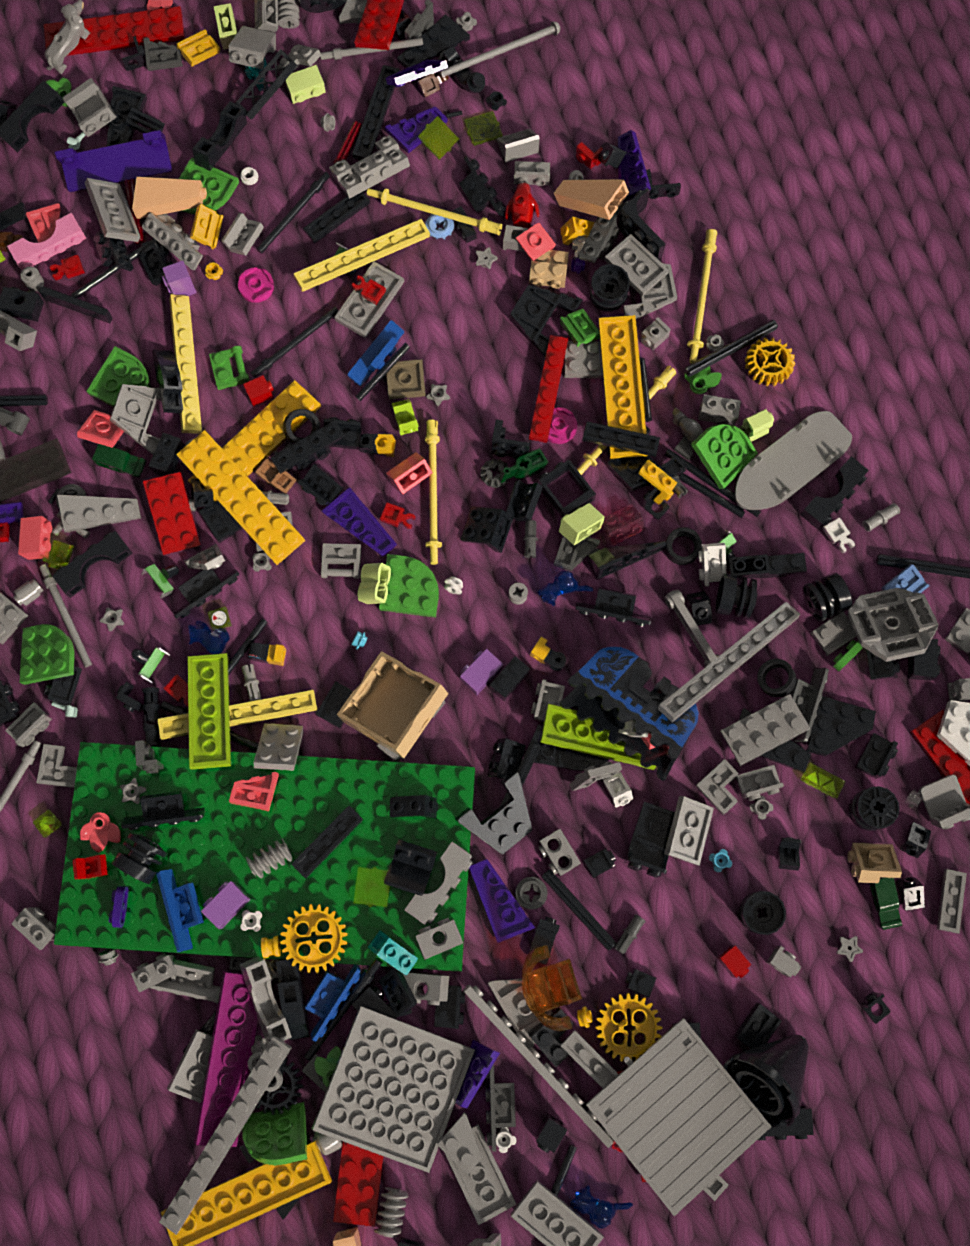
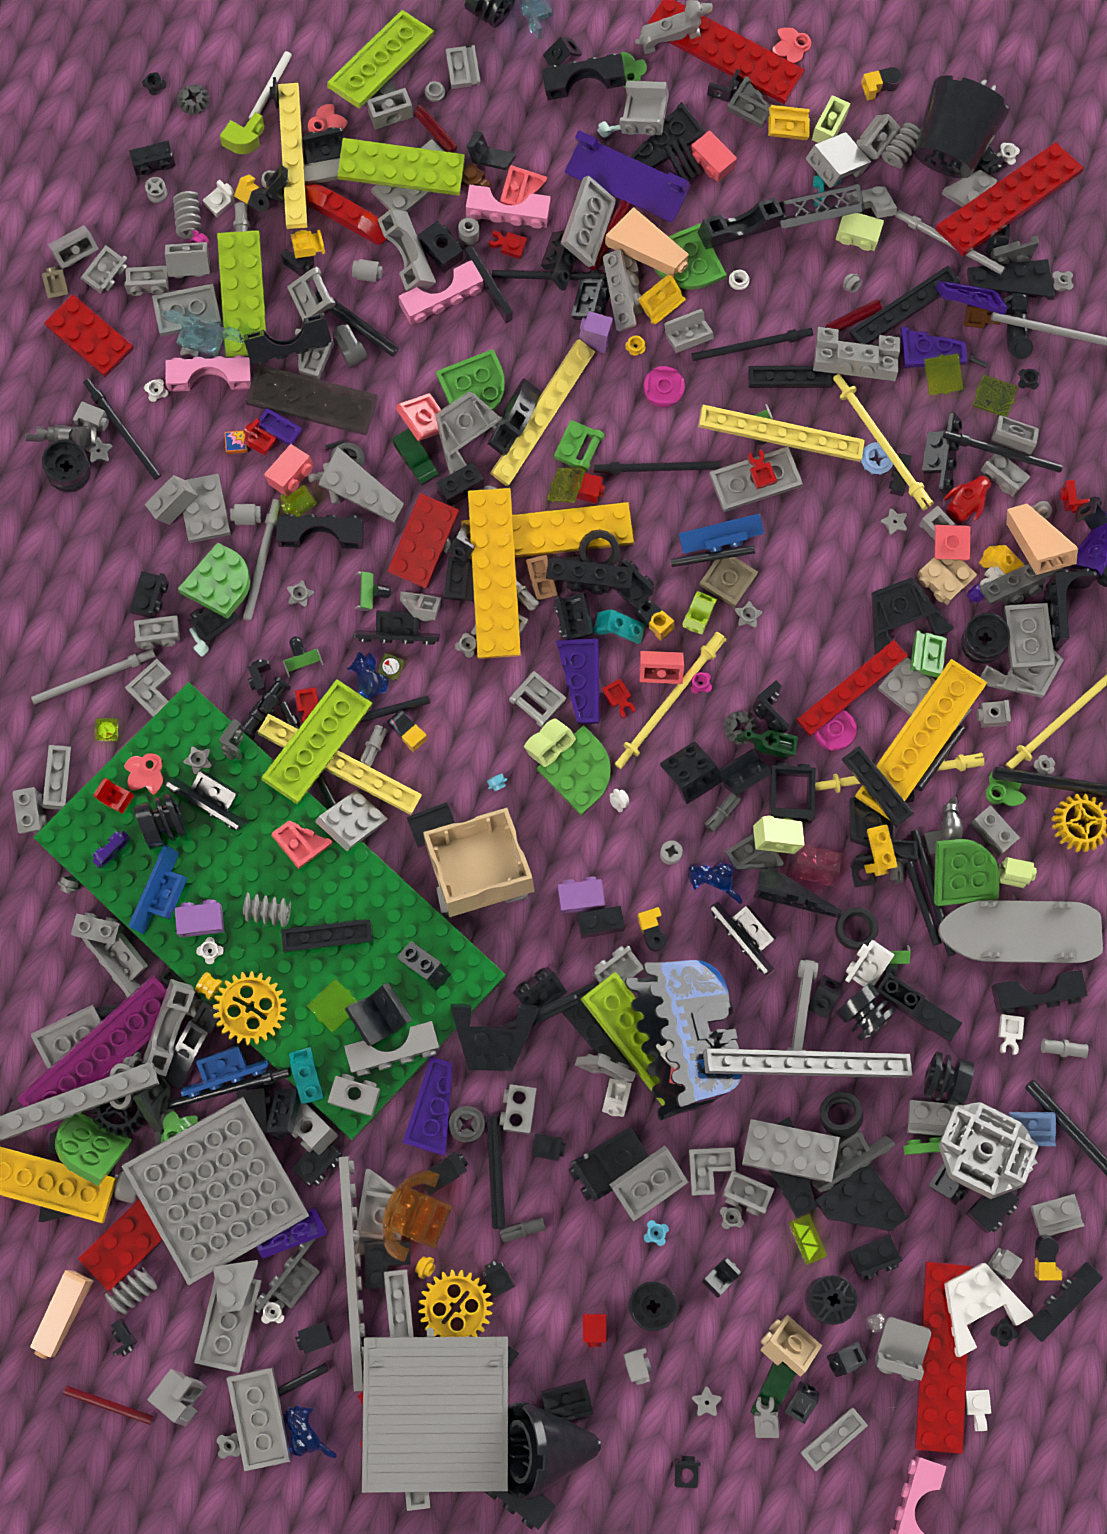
camera: 35 degrees right, 0 degrees up
(36, 887) = (56, 777): none -> light grey plate
(38, 354) = (419, 304): none -> bright pink arch
(165, 106) = (713, 156): none -> coral brick
(242, 400) = (566, 485): none -> clear neon green piece
(298, 1063) = (154, 1102): none -> pearl dark grey wing
(356, 466) = (620, 625): none -> teal bracket
(443, 458) = (701, 677): none -> dark pink plate
(489, 168) = (965, 440): none -> black bar
(899, 926) = (766, 1421): none -> light grey plate

